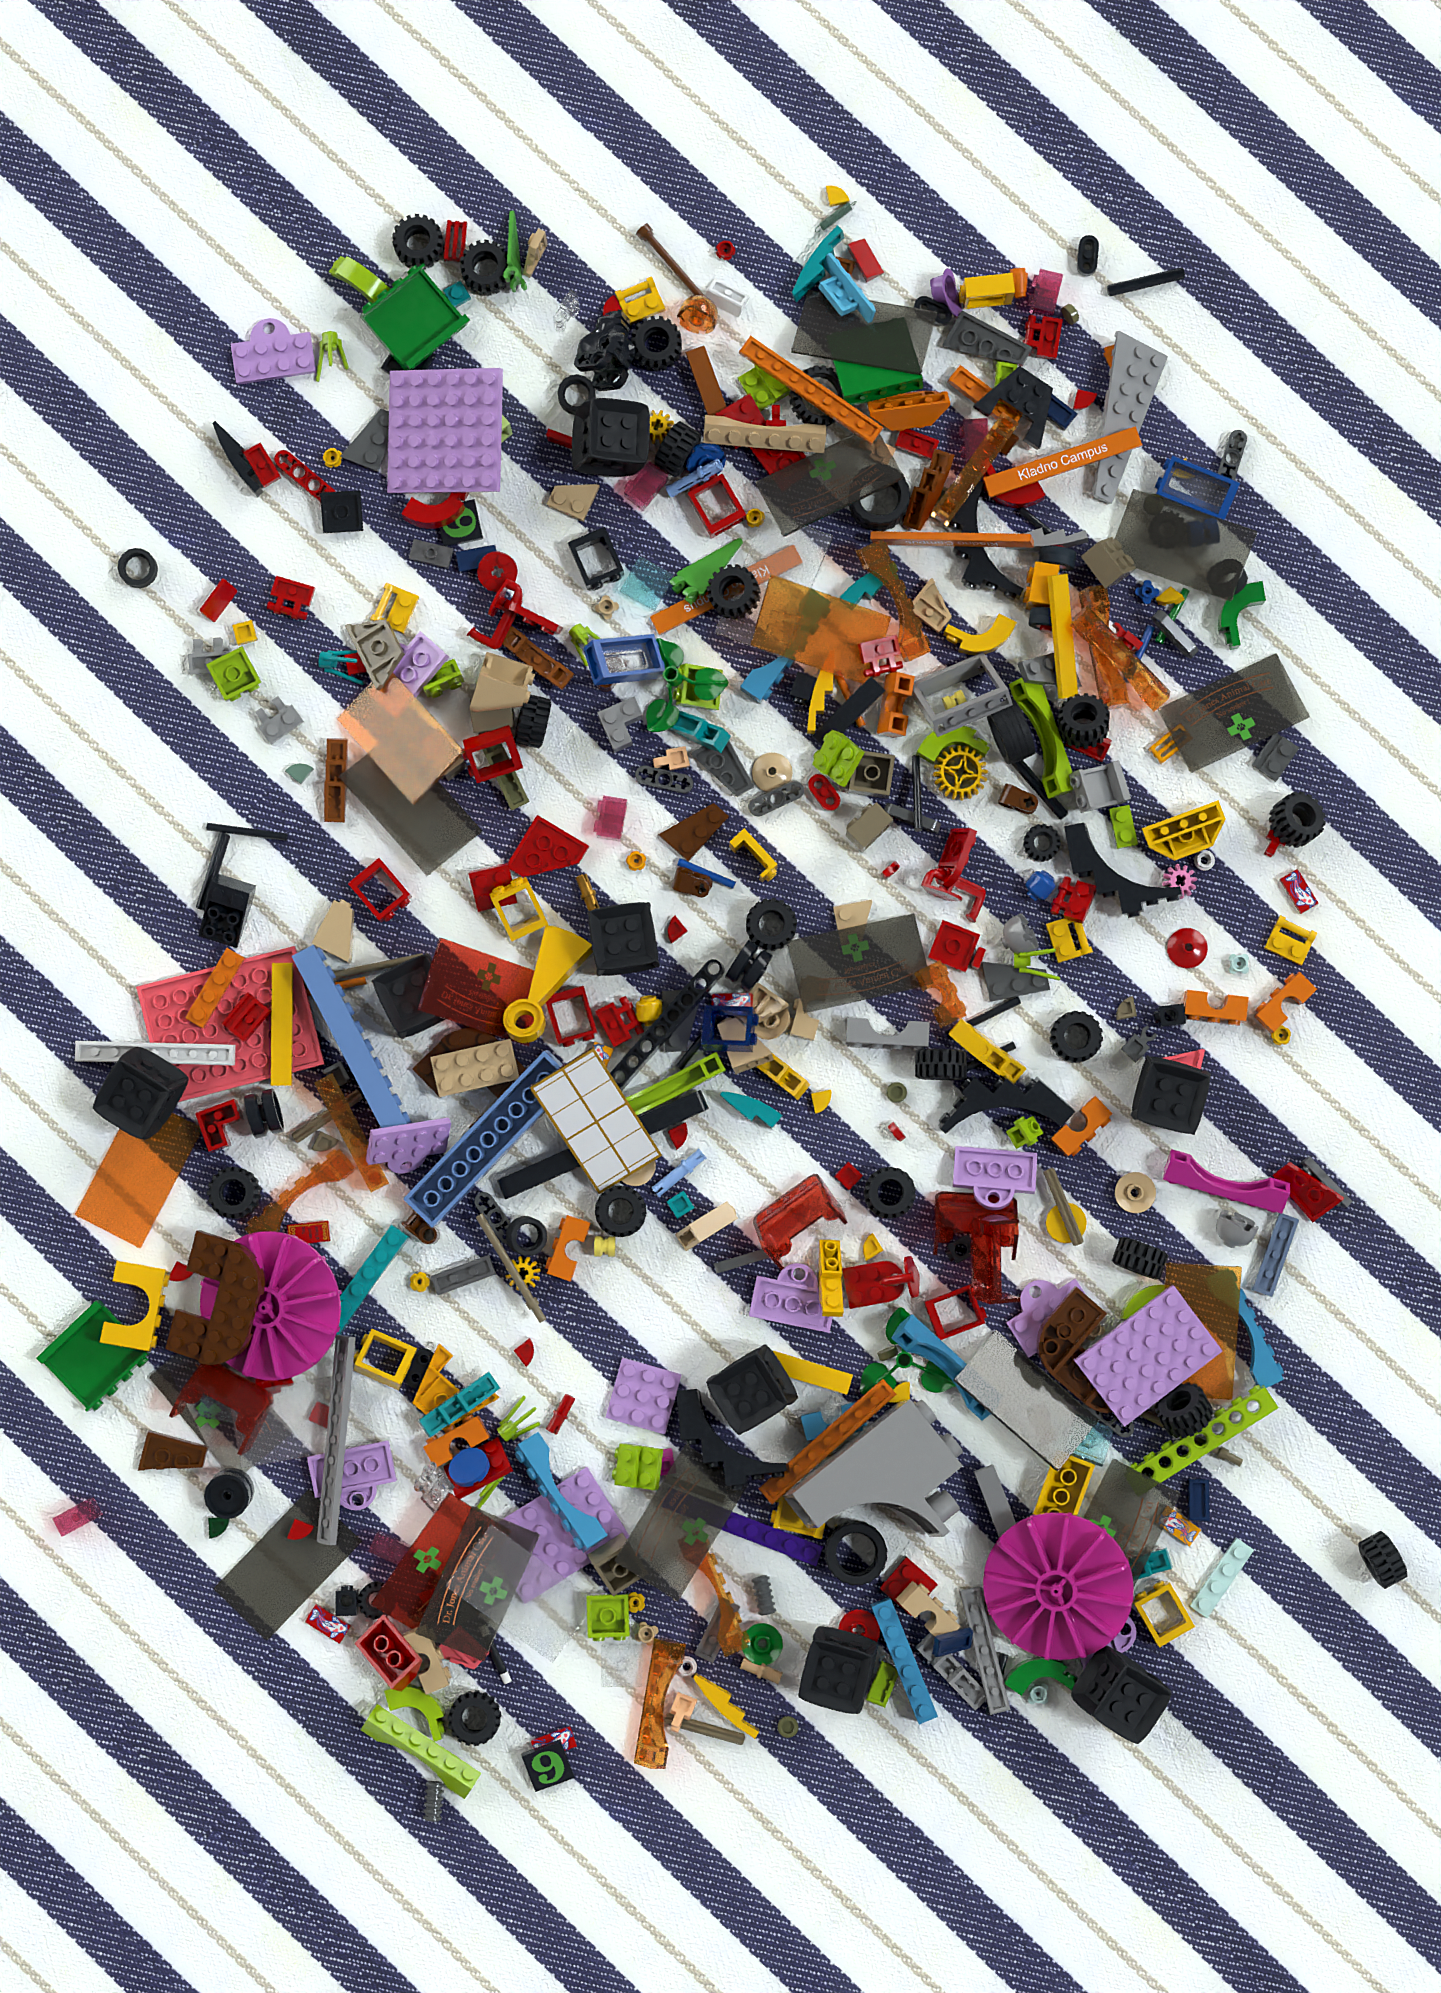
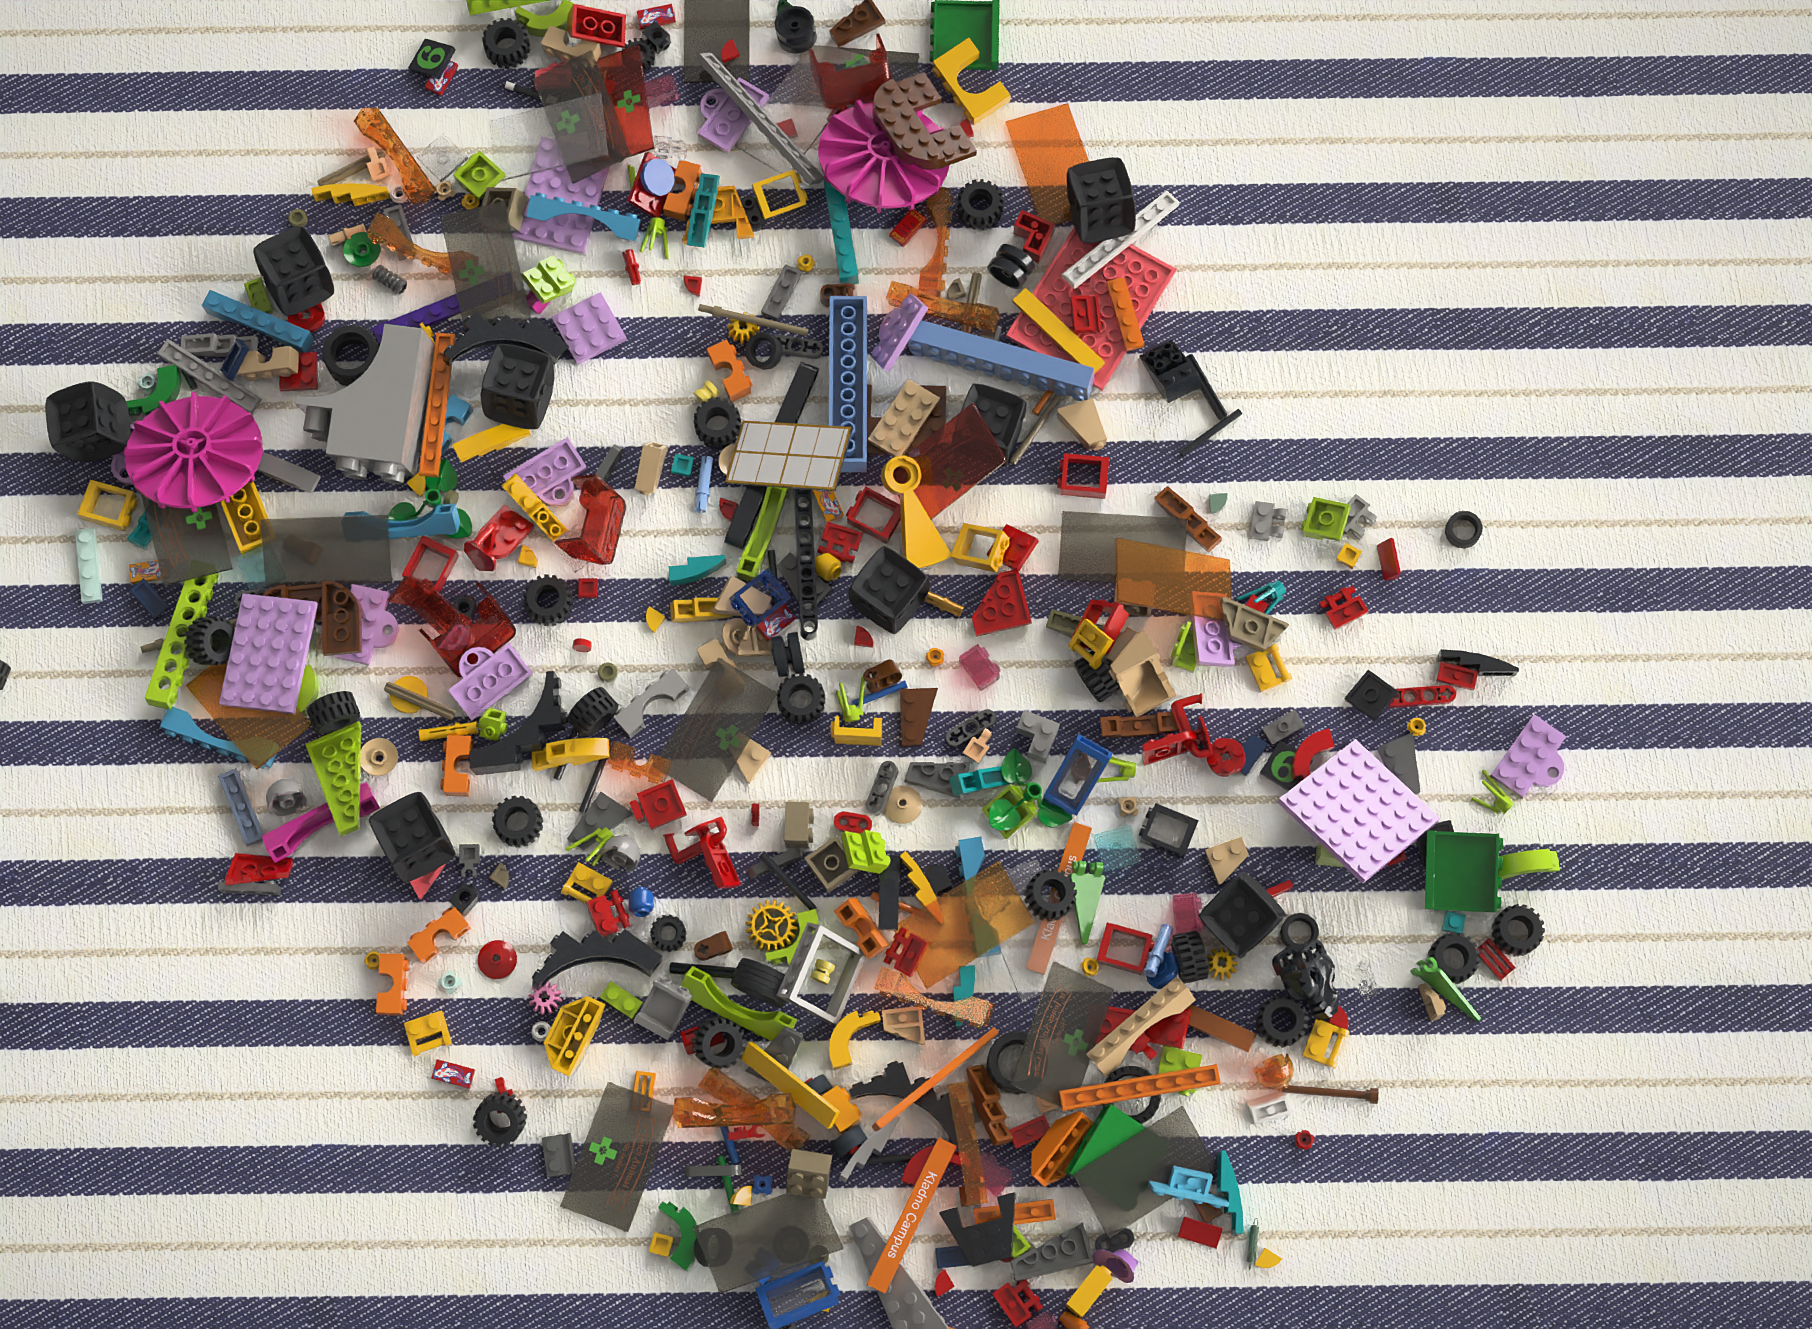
camera: 135 degrees right, 10 degrees down
(512, 741) = (1093, 638): none -> yellow plate
(742, 878) = (850, 712): none -> lime plant
(1082, 1176) = (442, 732): none -> yellow pin
(1175, 1210) = (338, 768): none -> lime wing
(1261, 619) = (661, 1244): none -> yellow plate

